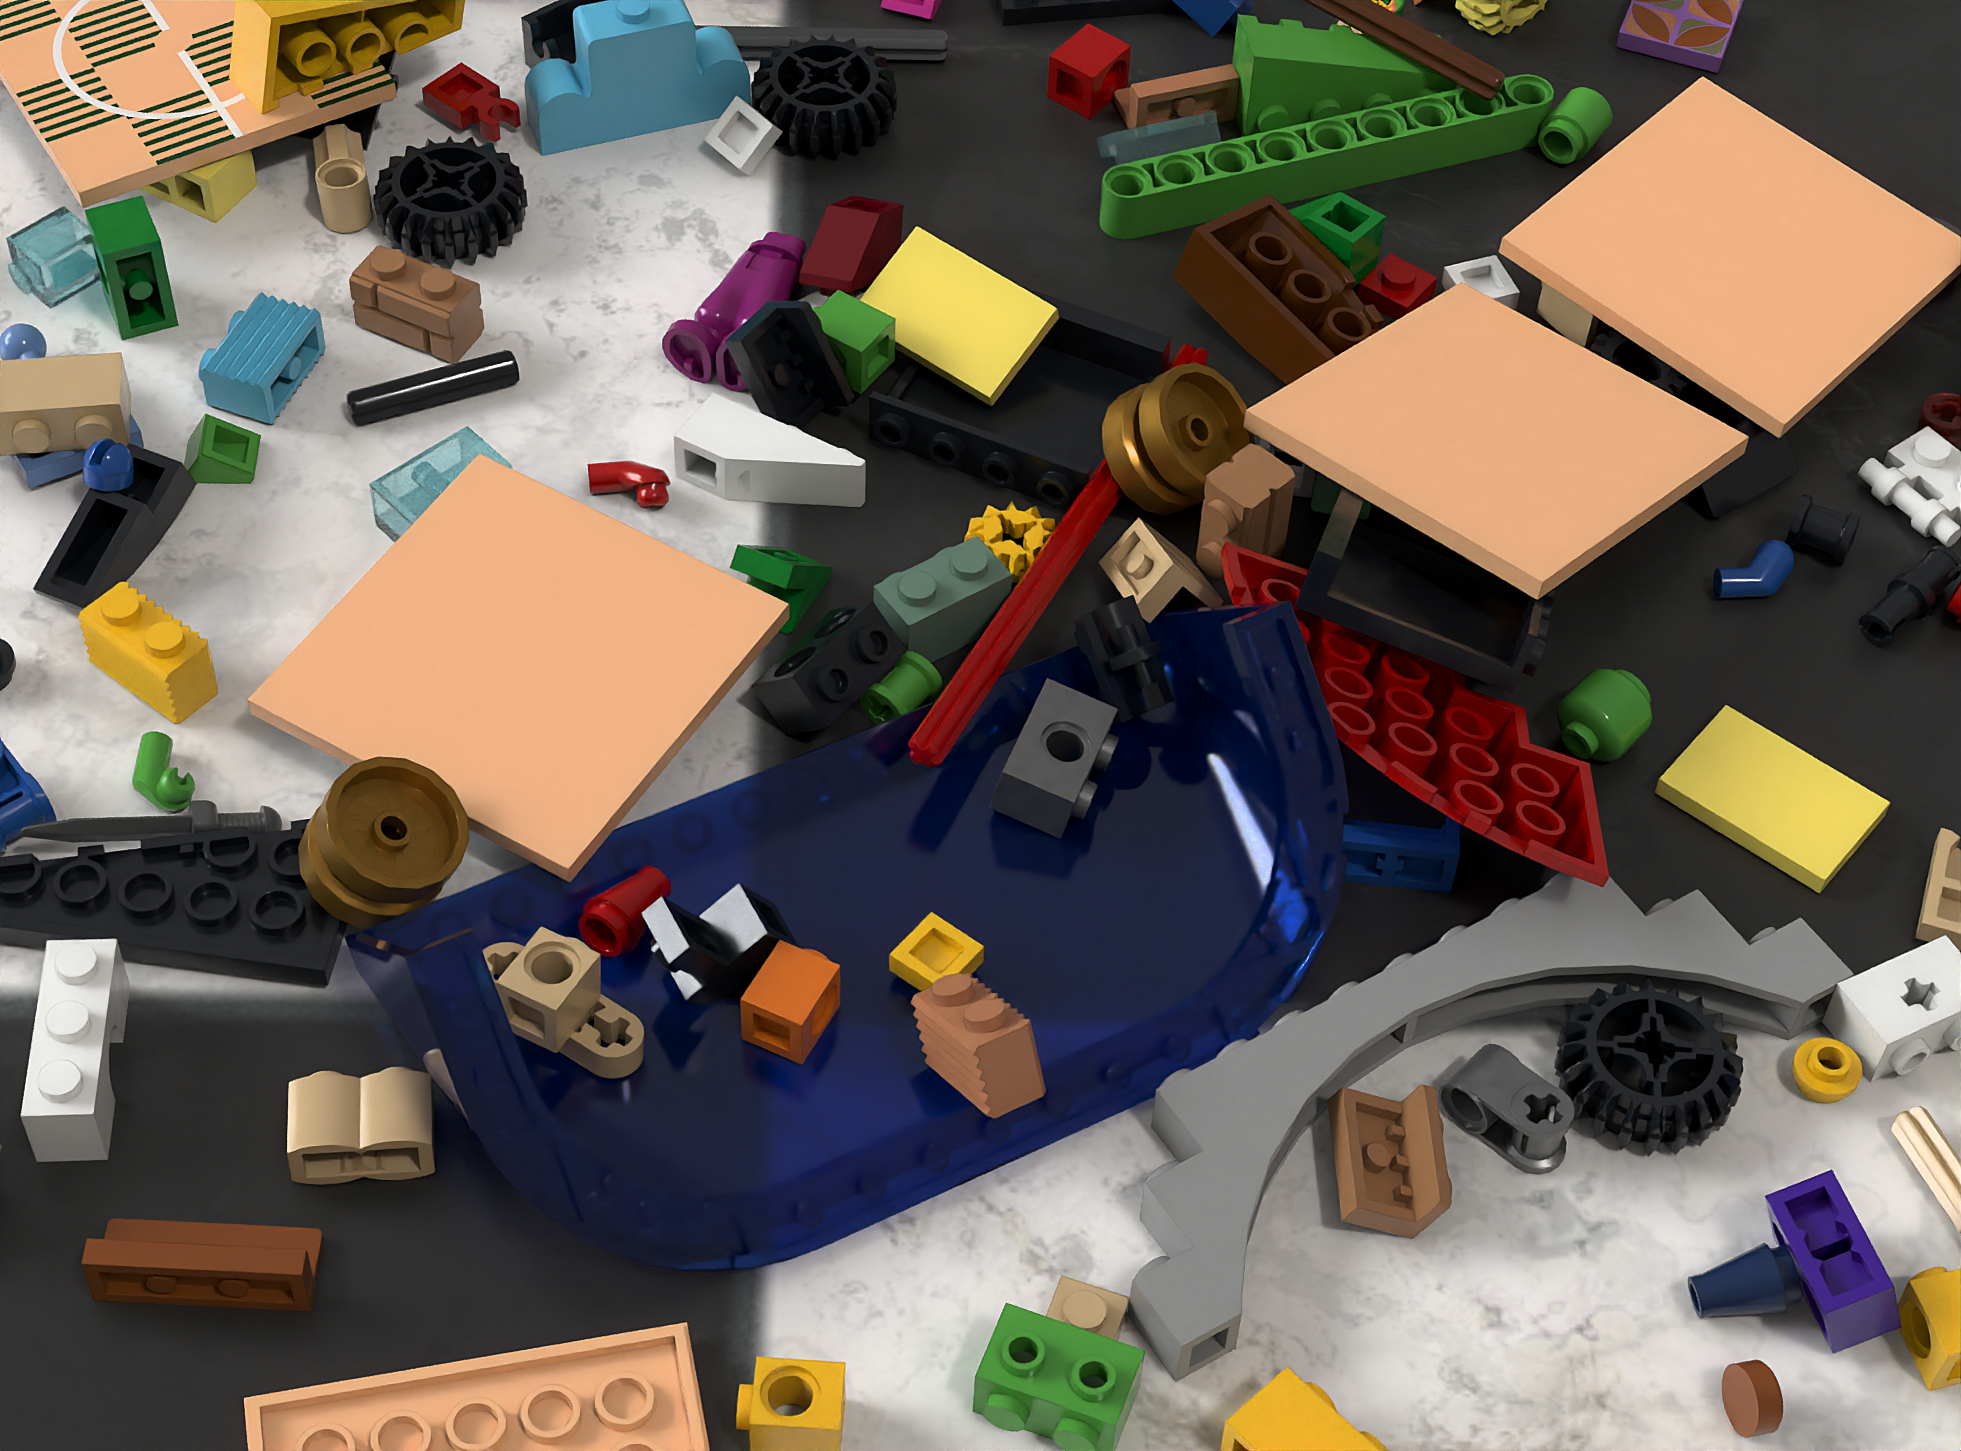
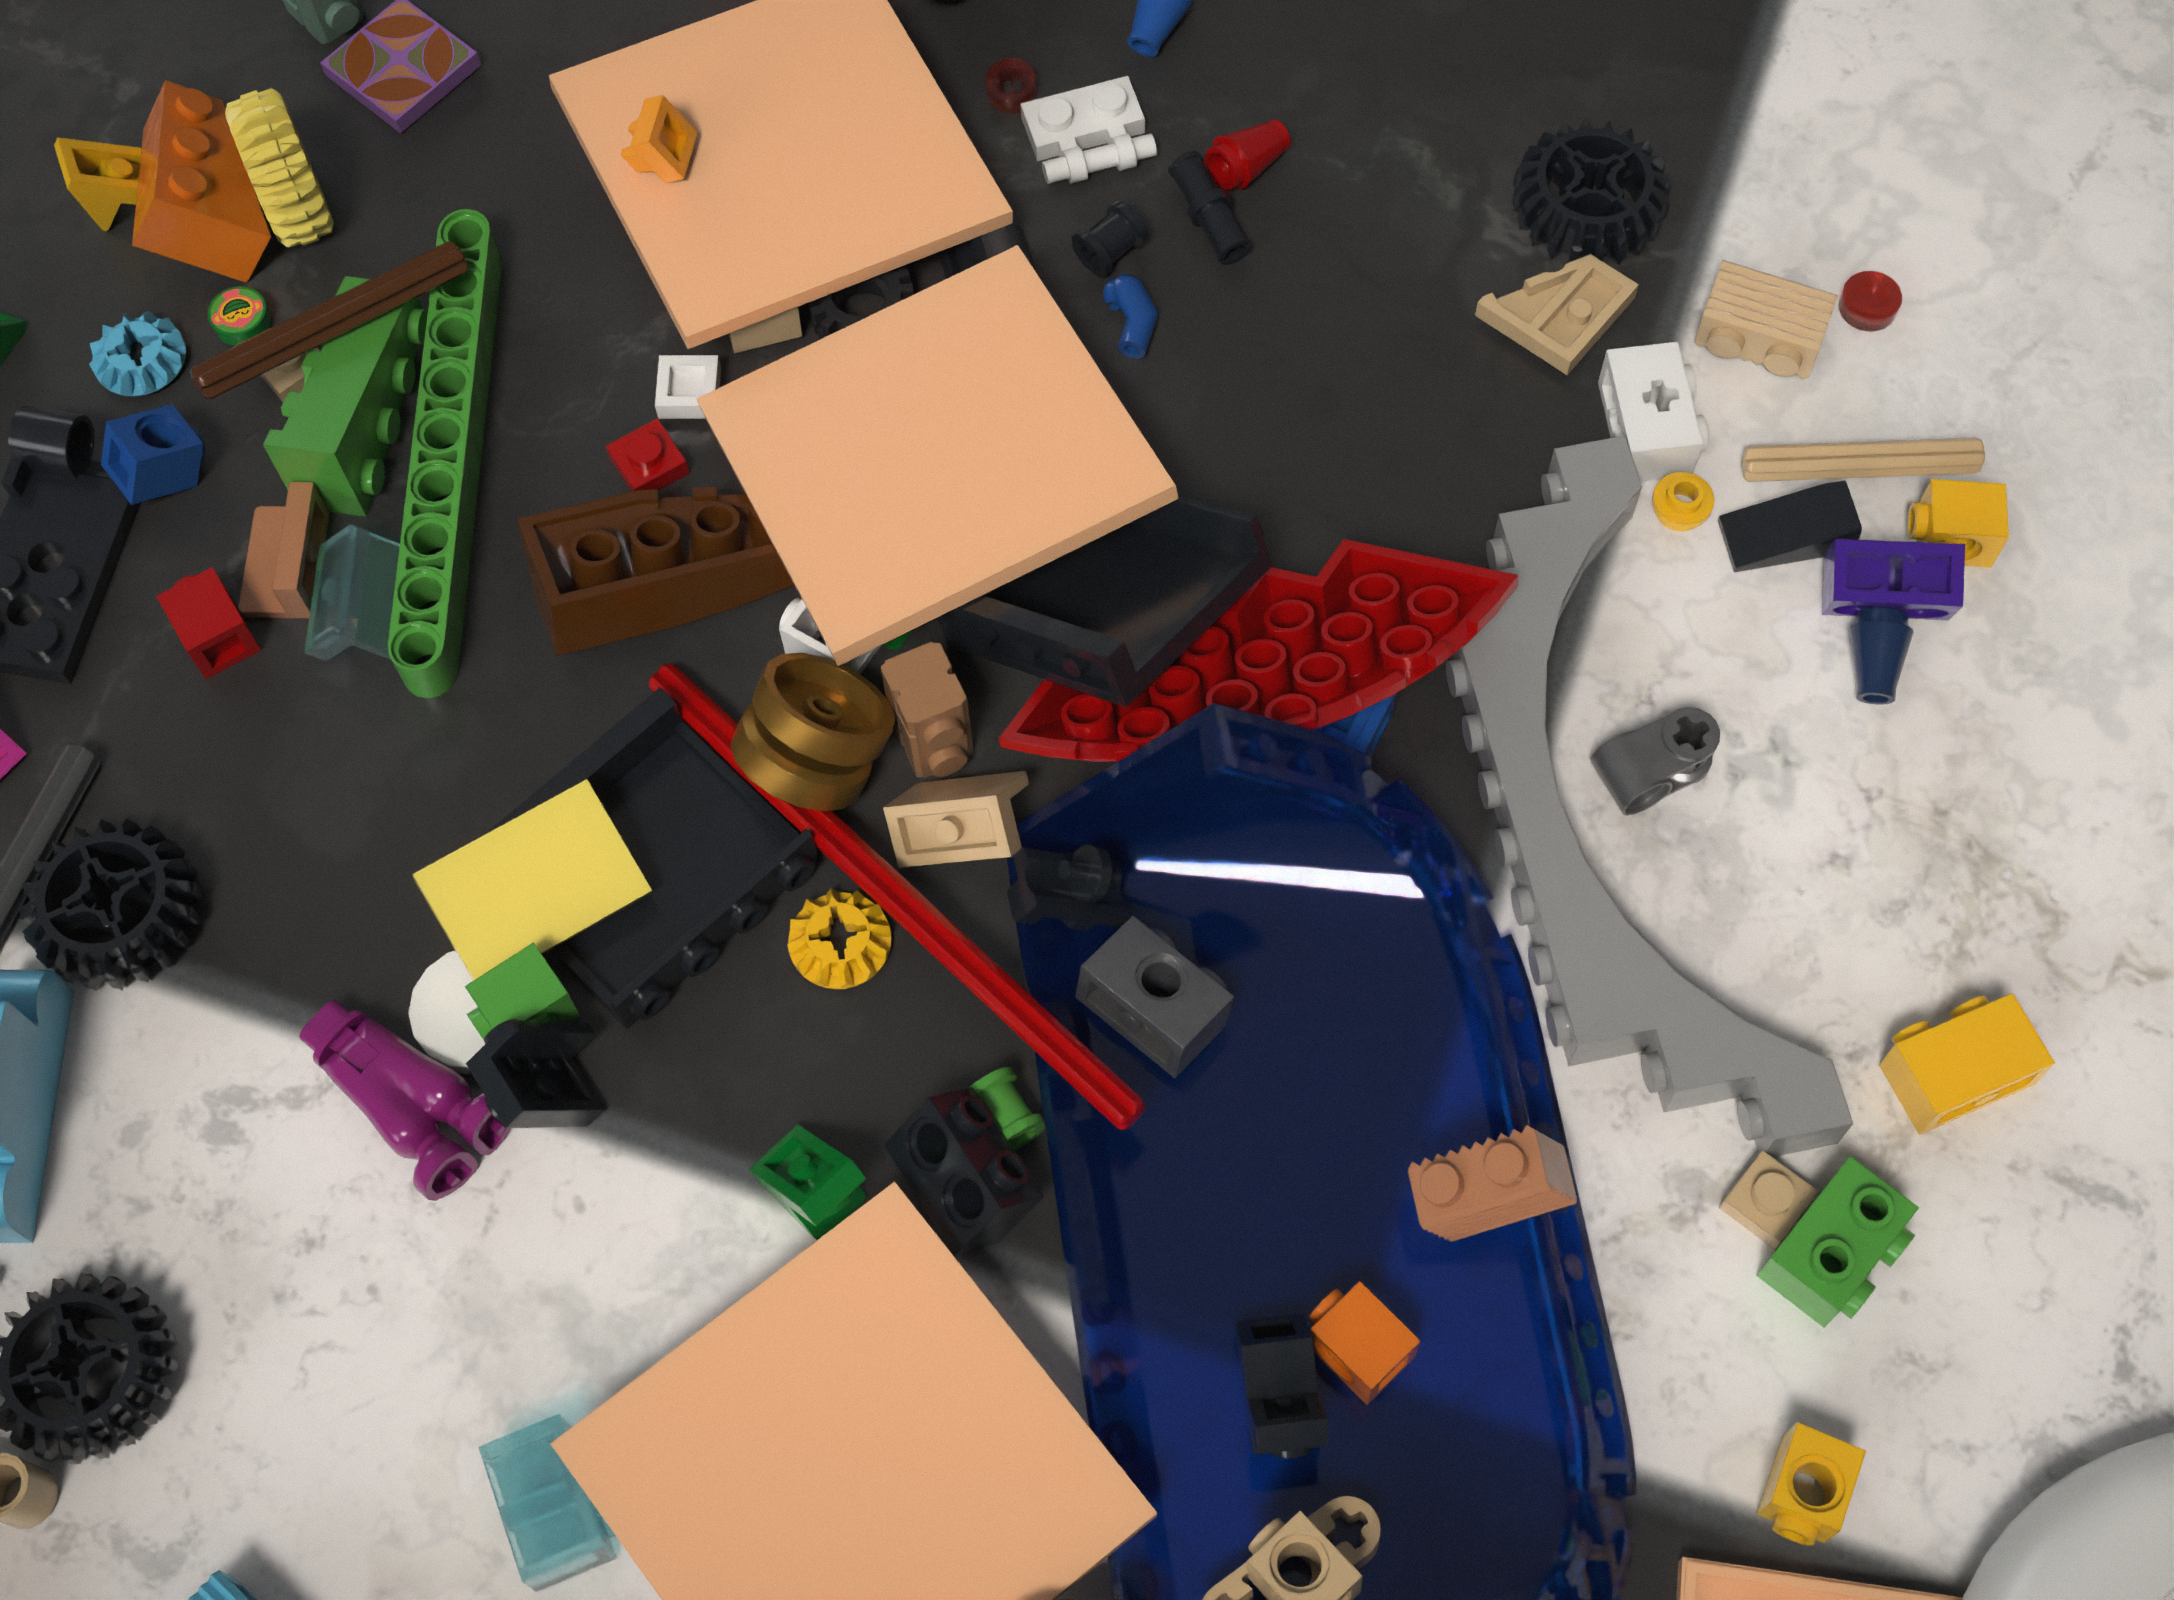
camera: 65 degrees left, 15 degrees up
(417, 303) = (238, 1453): medium nougat brick -> none
(432, 387) = (364, 1472): black axle -> none
(614, 918) = (1197, 1474): red cone -> none
(628, 476) = (594, 1287): red arm -> none
(743, 135) = (132, 1010): white plate -> none
(759, 459) = (627, 1155): white slope -> none
(852, 244) = (384, 950): dark red slope -> none
(934, 952) = (1348, 1189): yellow plate -> none
(945, 599) = (911, 1031): sand green brick -> none
(1345, 229) = (566, 477): green slope -> none
(1389, 1160) = (1686, 876): medium nougat bracket -> none
(1575, 125) = (513, 214): bright green brick -> none
(1604, 714) = (1270, 495): bright green head -> none
(1635, 1056) = (1621, 607): black gear -> none
(1678, 153) = (660, 140): none -> light orange tile
(1752, 1398) = (1987, 697): dark orange tile -> none
(1772, 798) = (1385, 415): light yellow tile -> none
(1875, 1184) = (1790, 527): none -> black slope

